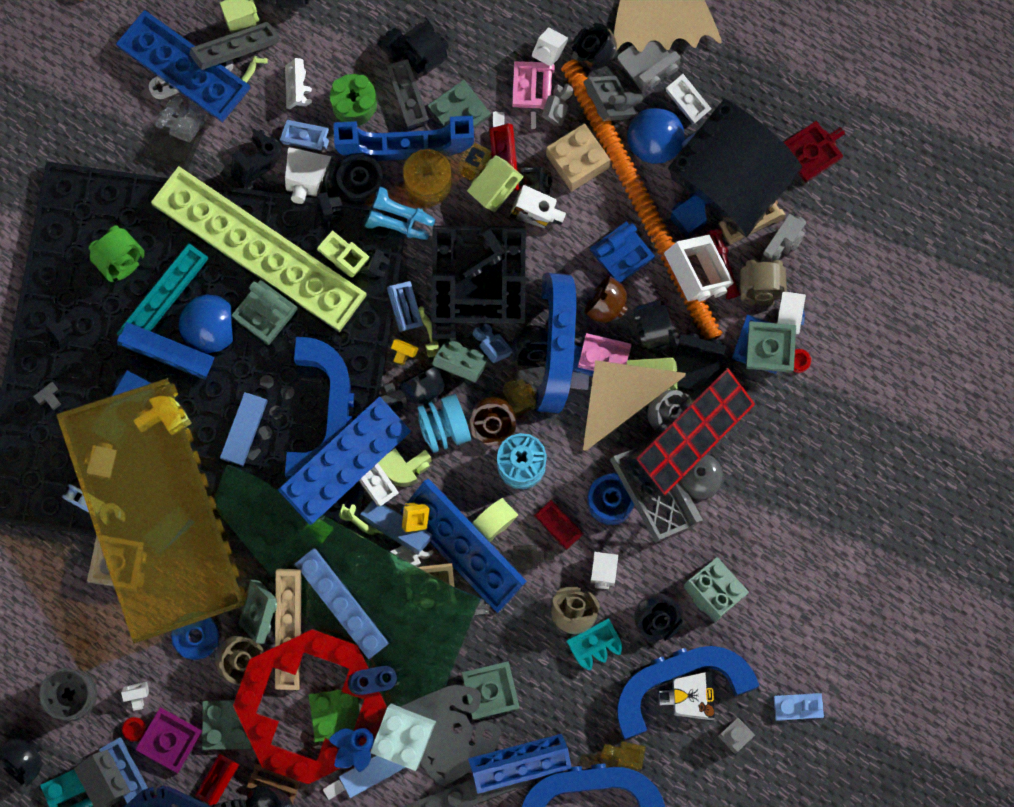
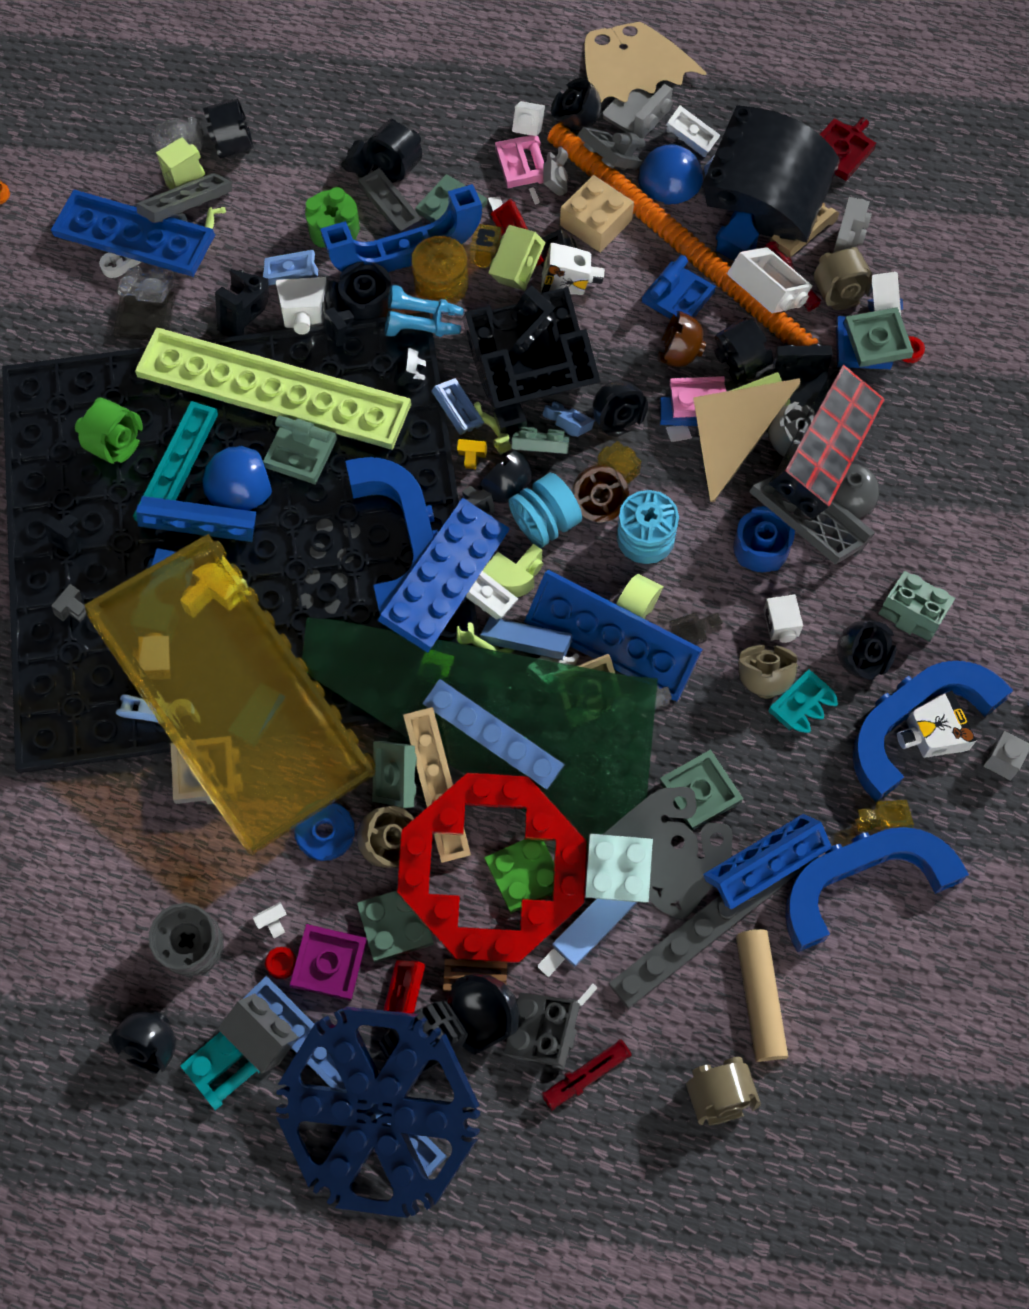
camera: 15 degrees left, 10 degrees down
(243, 429) = (313, 579): medium blue tile -> none
(295, 76) = (263, 224): white plate -> none
(345, 256) = (374, 368): yellowish green brick -> none
(350, 750) = (559, 902): blue plate -> none
(373, 680) = (561, 809): dark blue plate -> none
(415, 517) = (547, 617): yellow tile -> none
(557, 379) = (636, 346): blue arch -> none
(558, 525) = (712, 586): dark red plate -> none

